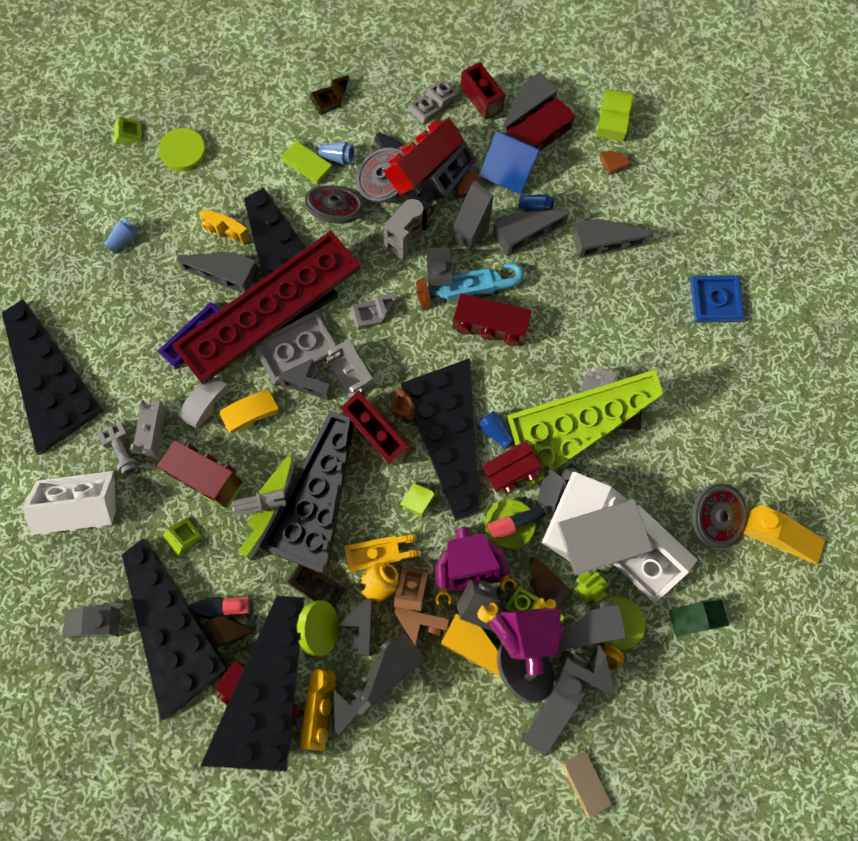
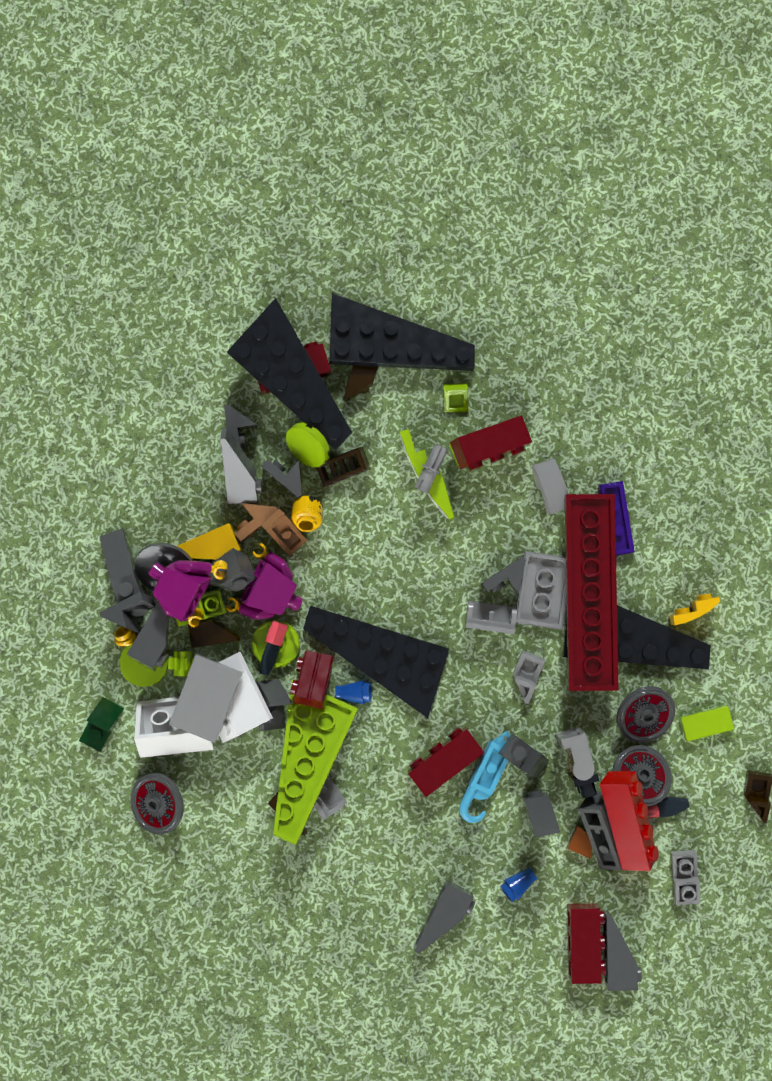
camera: 130 degrees right, 15 degrees up
(50, 387) = (654, 380): black wing -> none
(71, 503) = (543, 335): white slope -> none
(91, 622) = (439, 290): dark grey slope -> none
(121, 235) = (750, 522): medium blue cone -> none
(126, 466) = (542, 394): light grey hinge -> none
(149, 429) = (560, 430): light grey hinge -> none
(217, 606) = (381, 387): piece -> none
(226, 268) = (654, 583): dark grey slope -> none
(247, 410) = (516, 515): yellow slope -> none
(307, 524) = (390, 494): black wing -> none
(317, 710) = (253, 404): yellow hinge -> none
(338, 152) = (694, 756): medium blue cone -> none
(378, 428) = (424, 601): dark red brick -> none
(385, 550) = (330, 531): yellow hinge -> none
(403, 405) = (429, 636): dark orange tile -> none
(418, 500) = (347, 589): lime slope -> none
(423, 294) = (509, 724): dark orange tile -> none
(482, 90) = (658, 925): dark red brick -> none
(509, 162) = (572, 890): blue tile -> none
(523, 228) = (504, 853): dark grey slope -> none
(586, 784) = (59, 549): tan slope -> none
(614, 115) = (549, 1022): lime brick -> none
(614, 161) = (508, 984): dark orange tile -> none
(717, 299) = (323, 961): blue tile -> none
(783, 533) = (106, 840): yellow slope -> none

